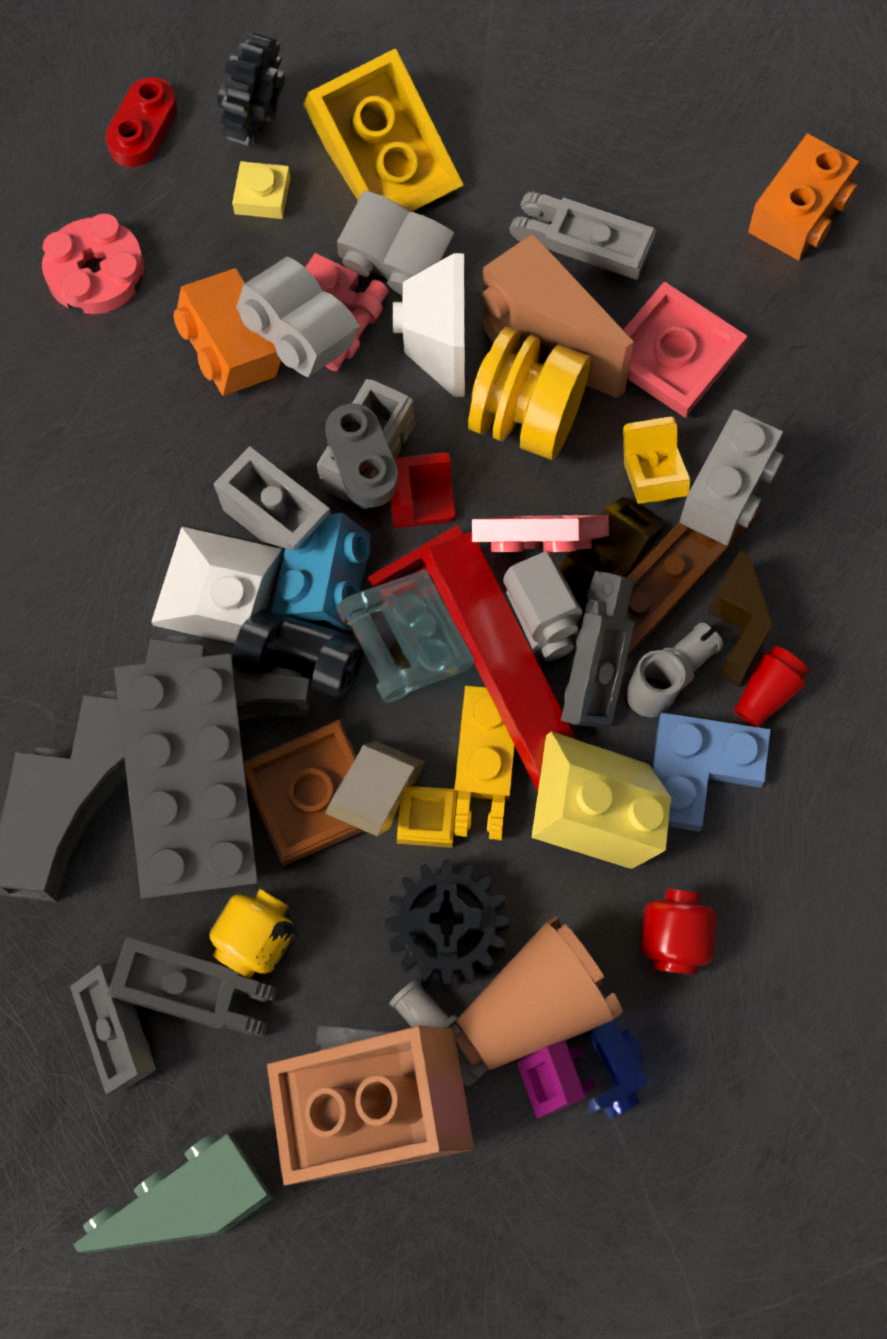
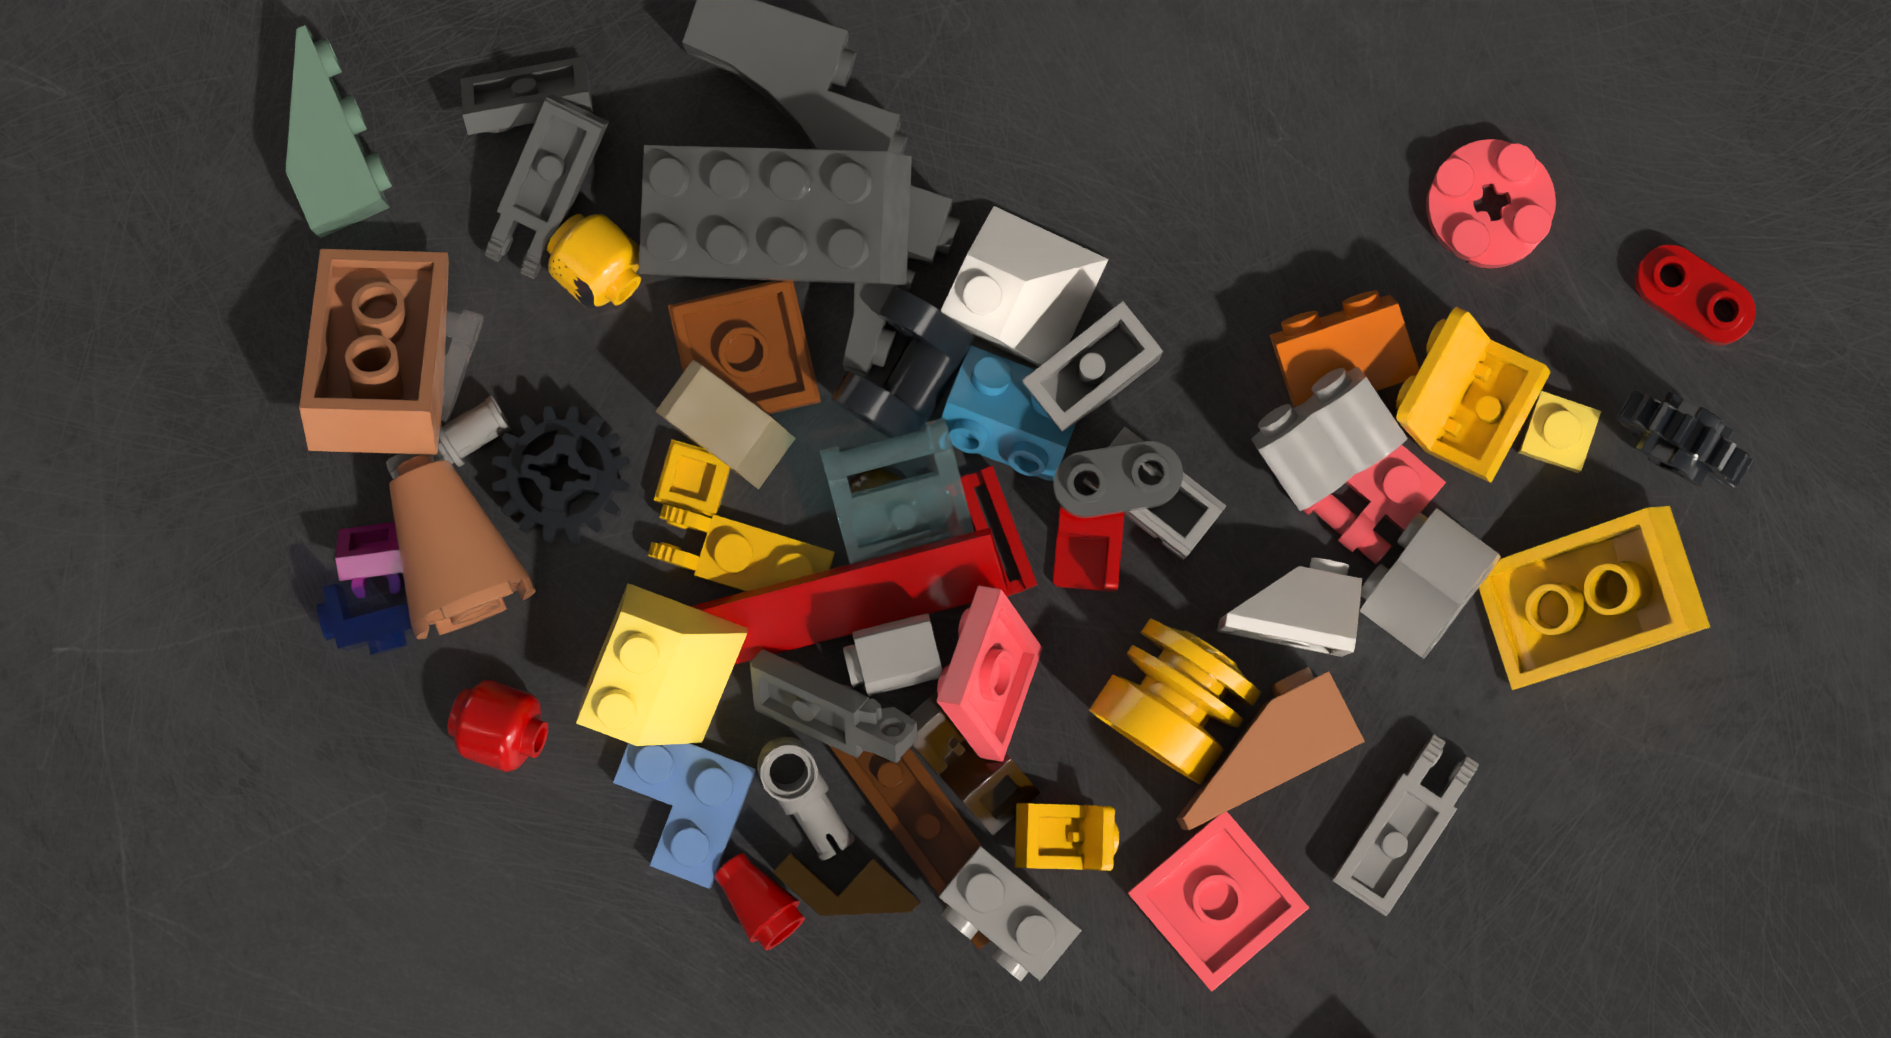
camera: 100 degrees right, 15 degrees up
(245, 235) = (1469, 396): none -> yellow bracket

